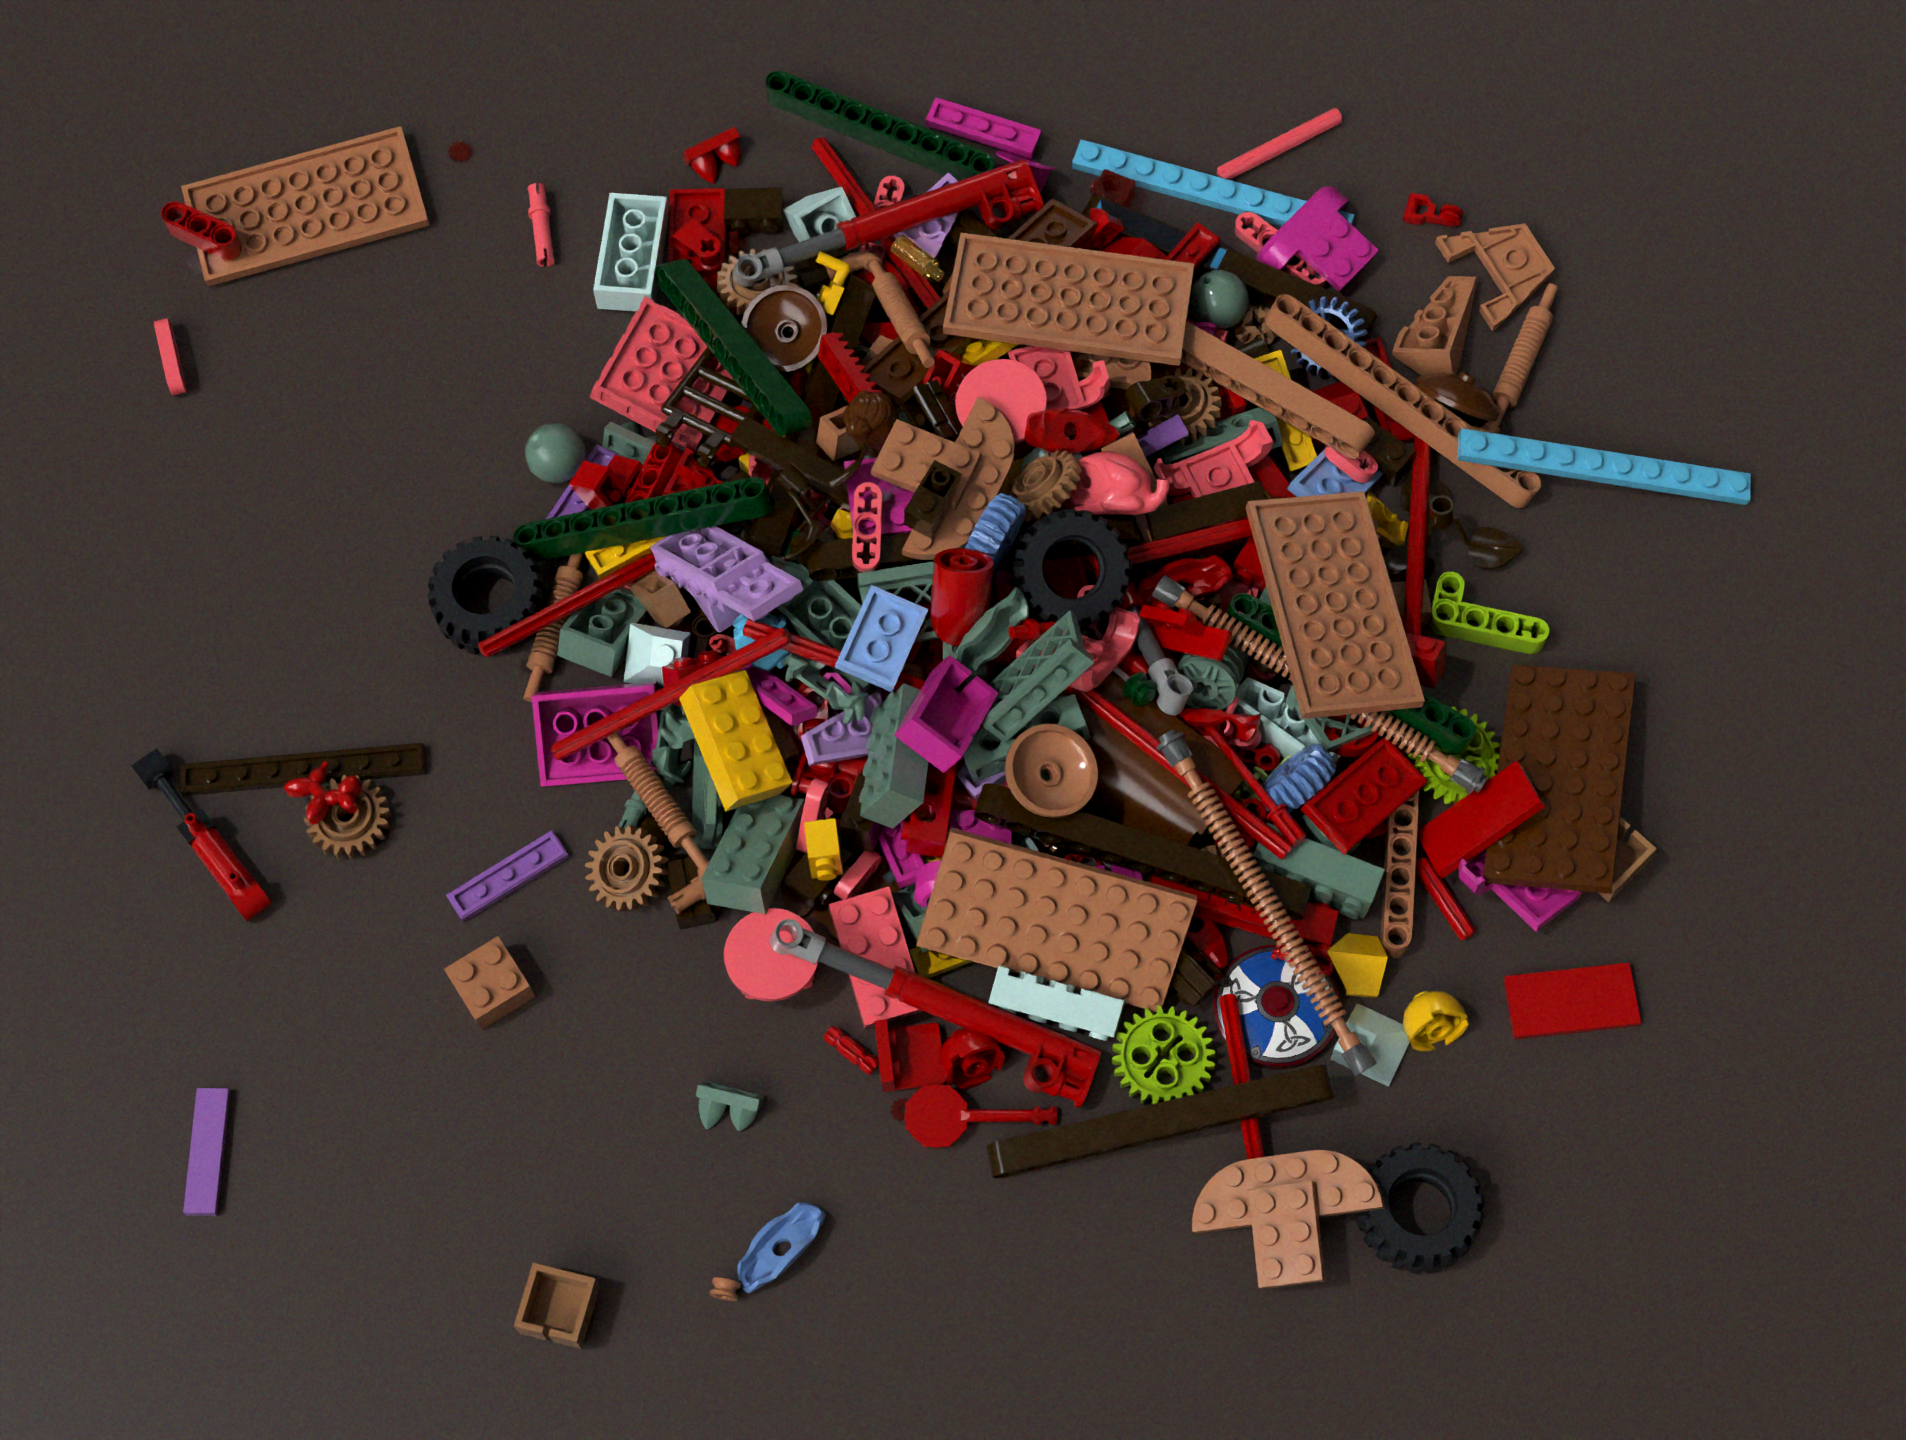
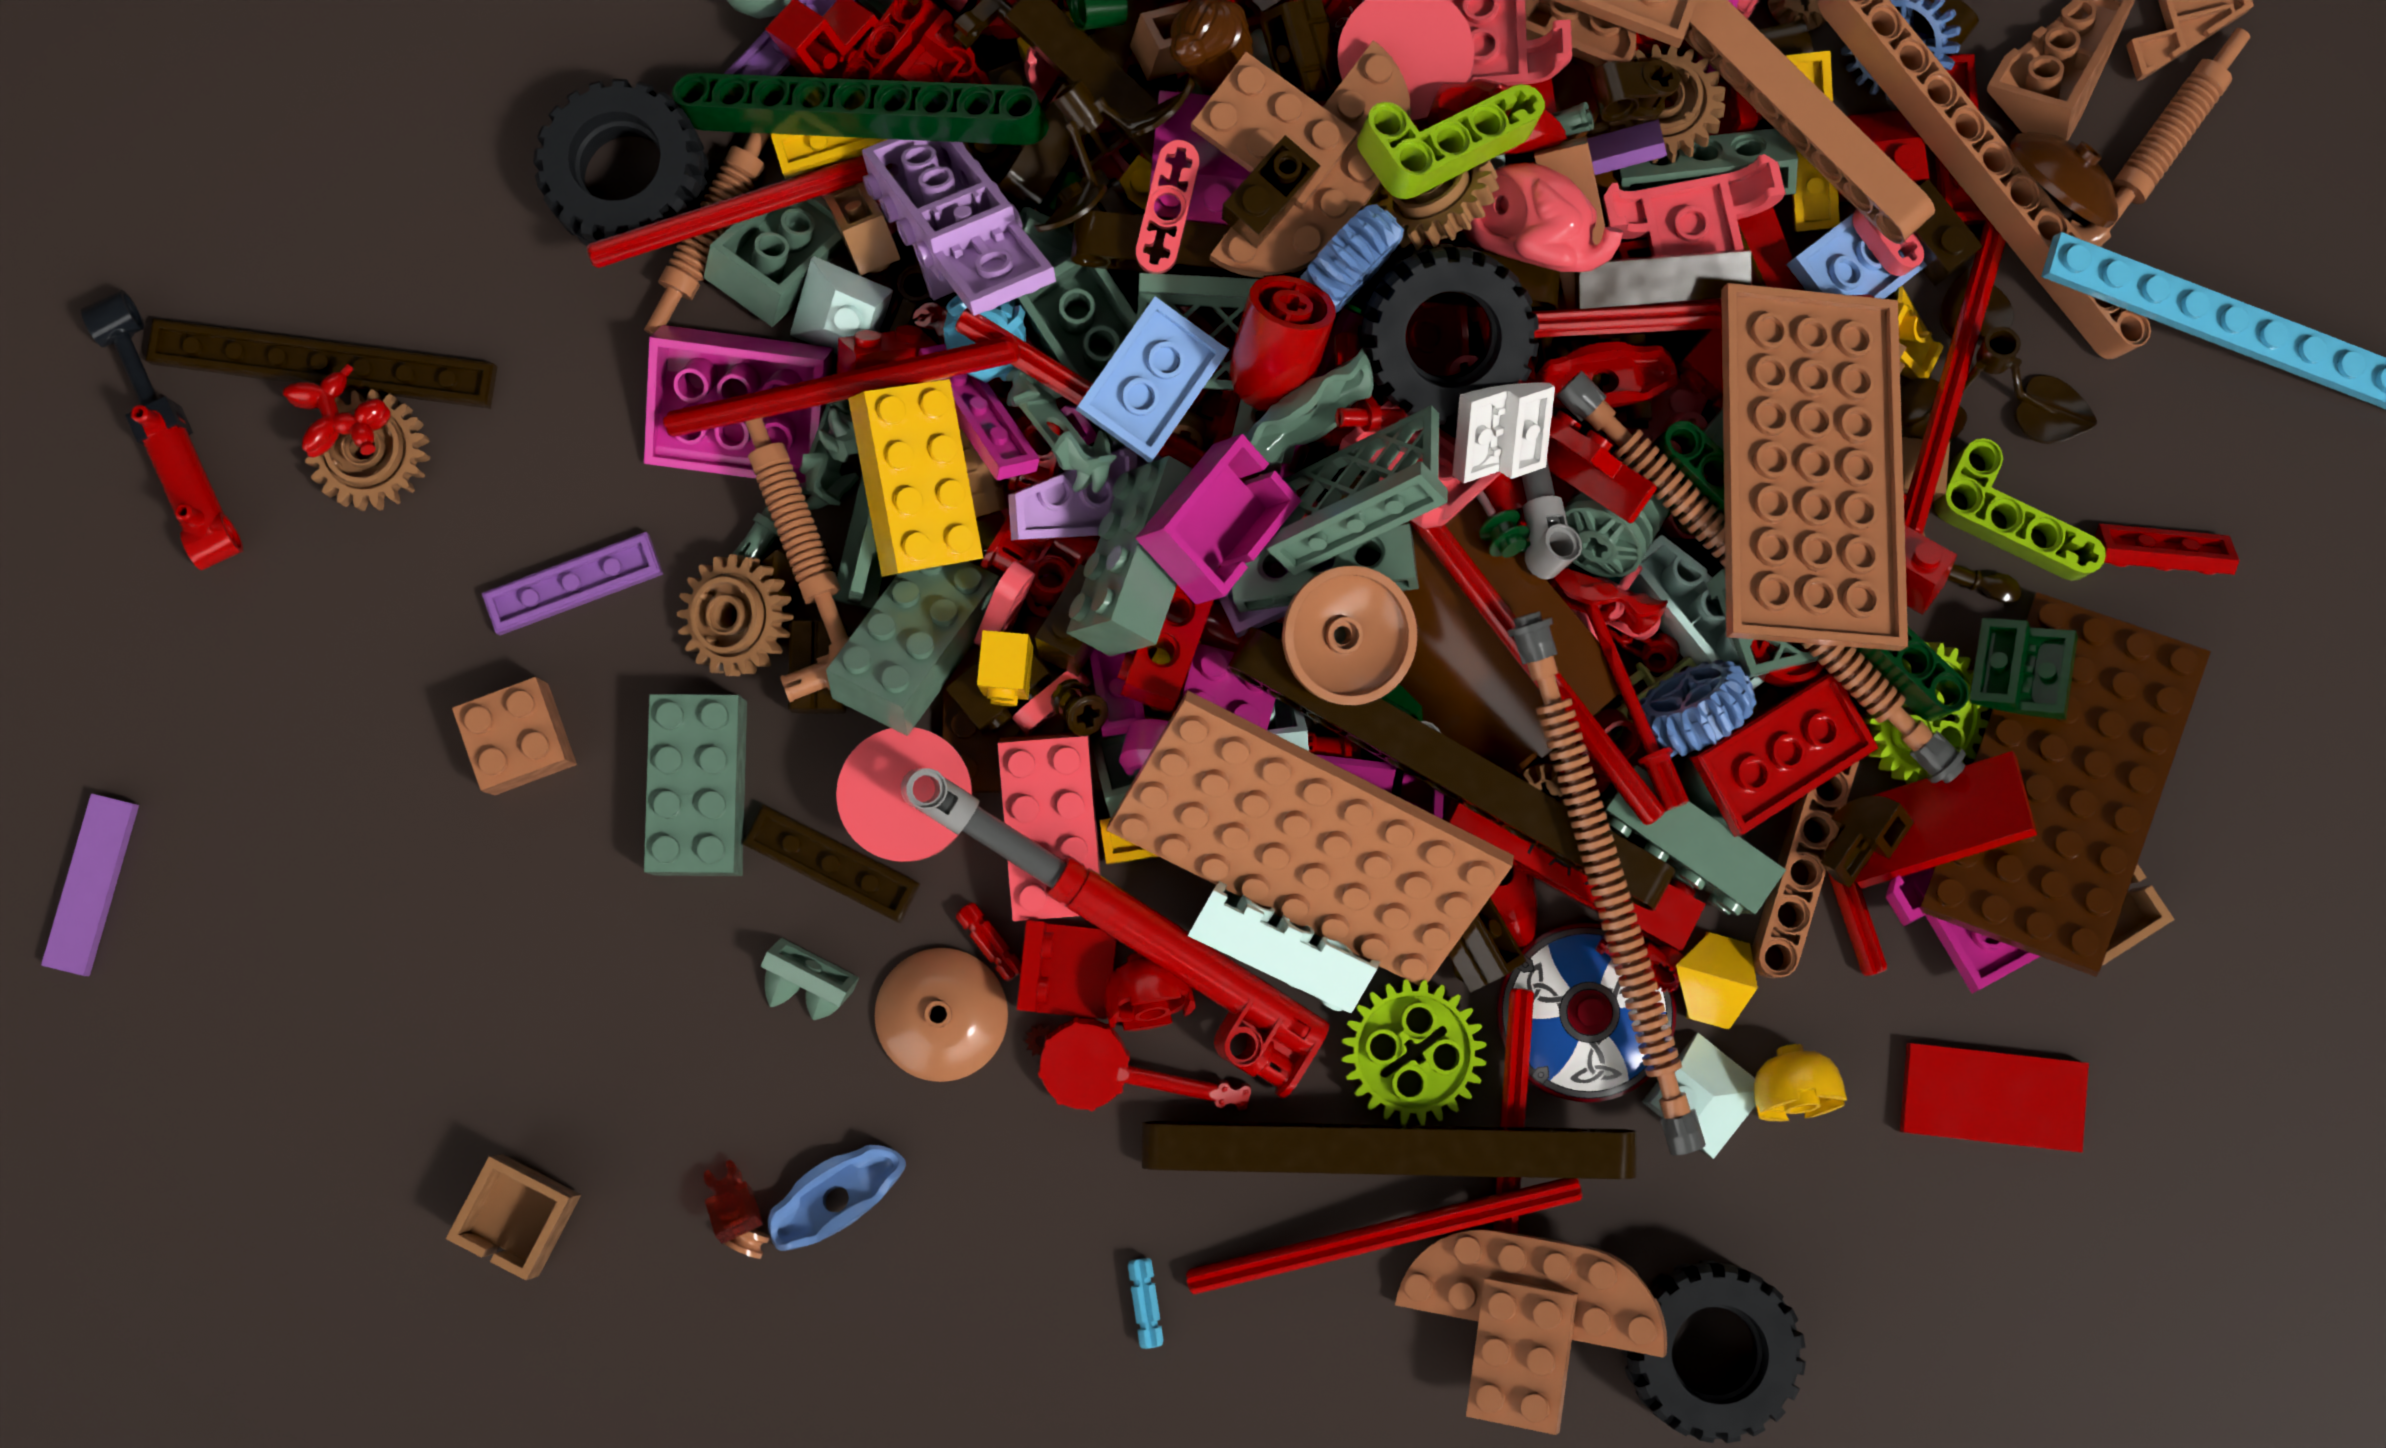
camera: 10 degrees right, 15 degrees up
(623, 988) = (695, 785): none -> sand green brick
(709, 1264) = (733, 1205): none -> clear red plate
(728, 1023) = (831, 864): none -> dark brown tile
(830, 1128) = (973, 1021): none -> nougat dish
(879, 869) = (1089, 706): none -> dark brown bush
(1016, 1271) = (1145, 1303): none -> medium azure axle
(1027, 459) = (1458, 135): none -> lime beam
(1122, 621) = (1503, 430): none -> white slope
(1171, 1182) = (1384, 1235): none -> red axle
(1433, 835) = (1866, 827): none -> dark brown brick
(1484, 667) = (1996, 586): none -> dark brown piece
(1513, 711) = (2023, 668): none -> dark green slope
(1591, 618) = (2168, 549): none -> red plate

